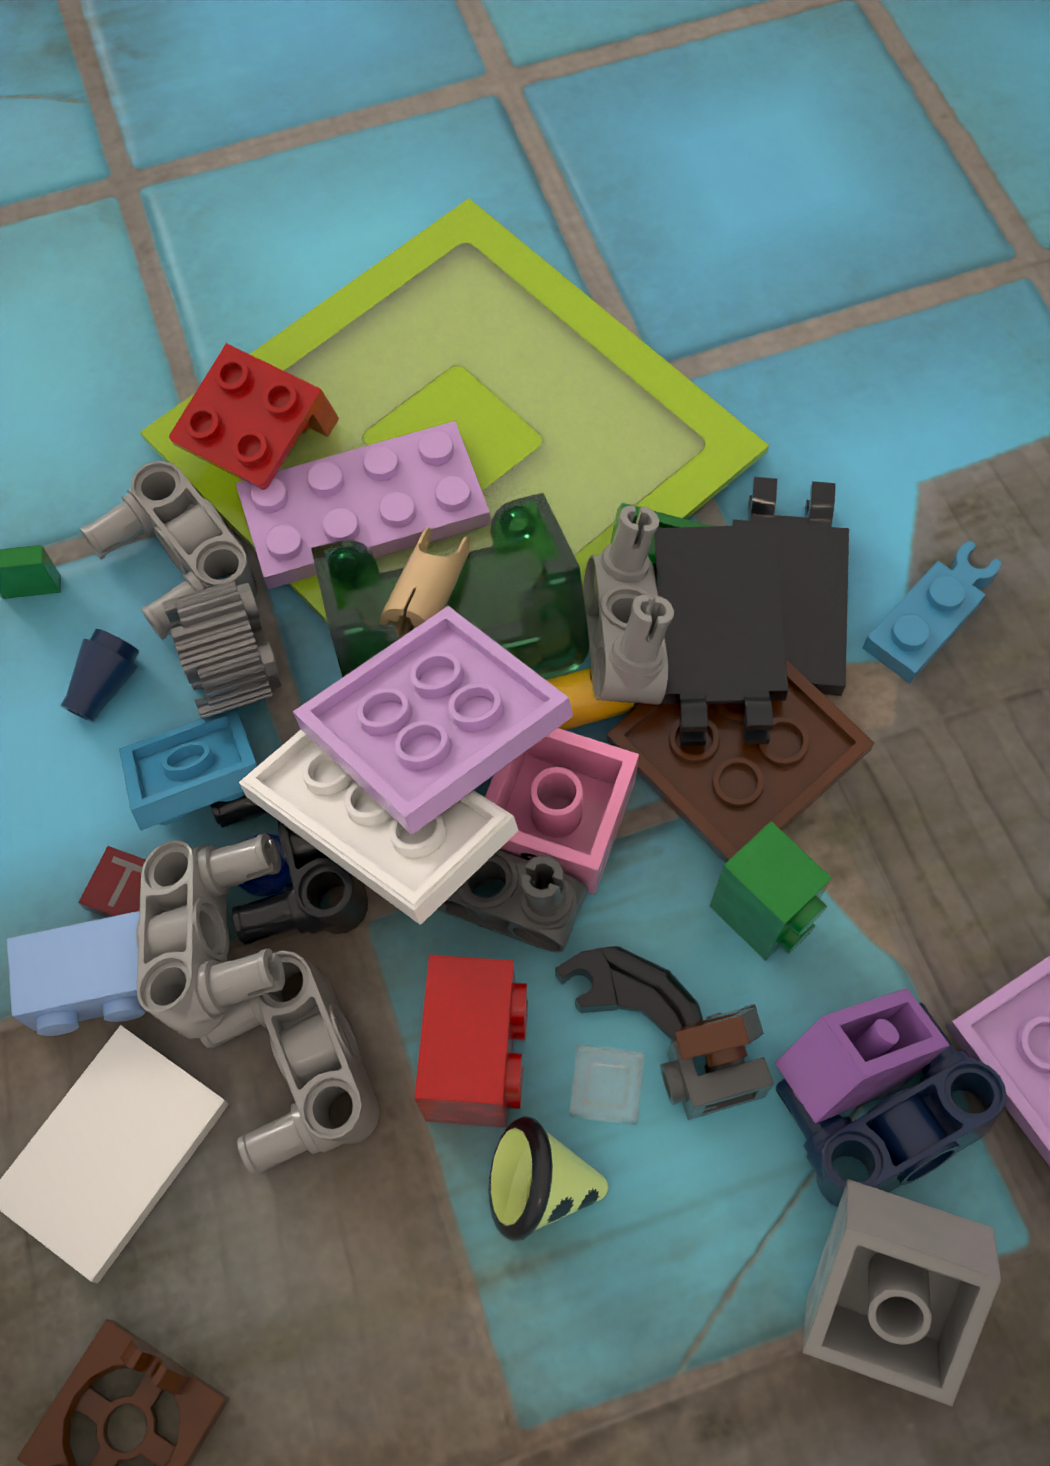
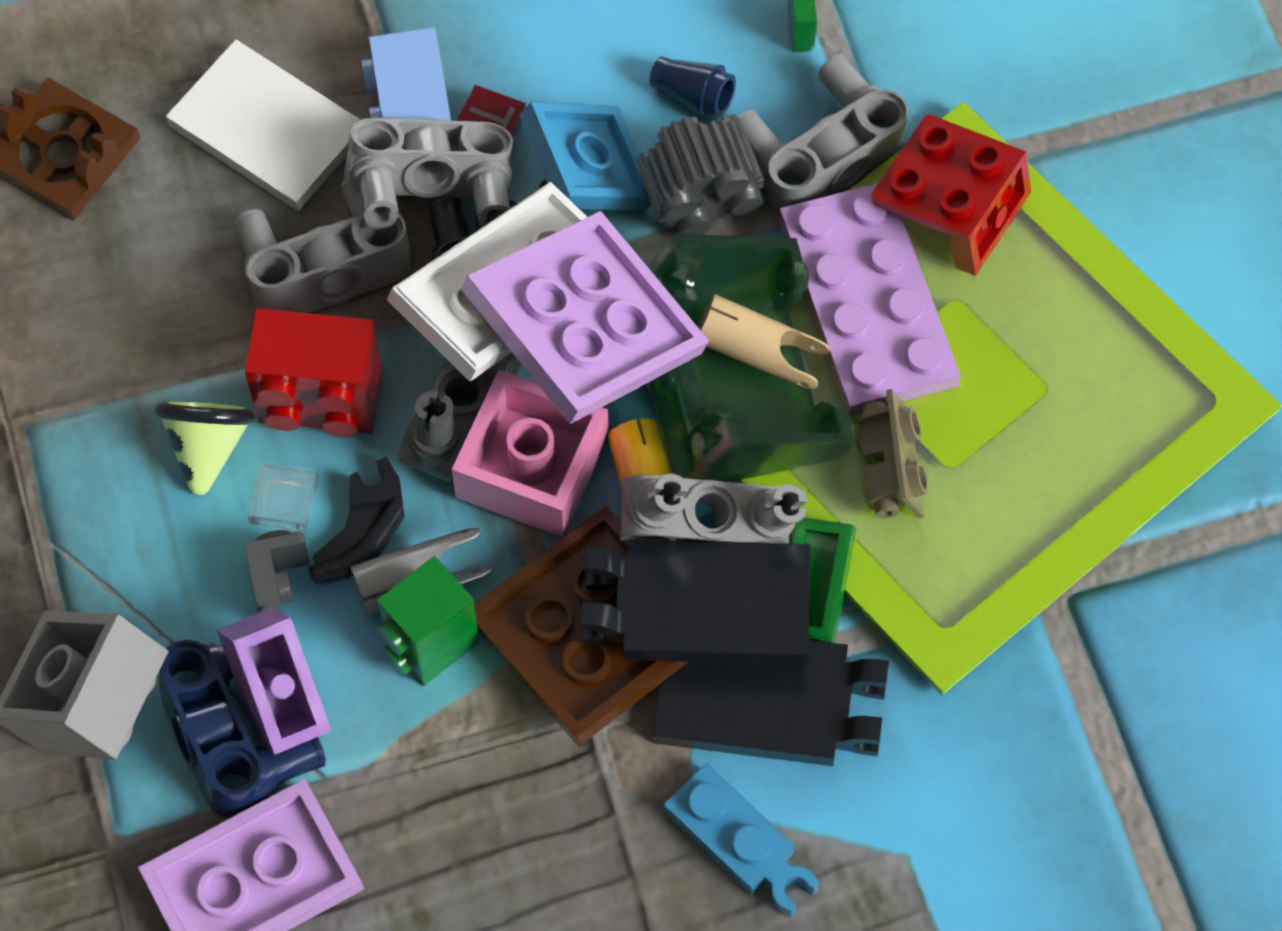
camera: 90 degrees right, 0 degrees up
(563, 469) = (901, 477): none -> dark tan hinge
(693, 925) = (382, 573): none -> light grey piece
(720, 1036) = (301, 568): reddish brown plate -> none

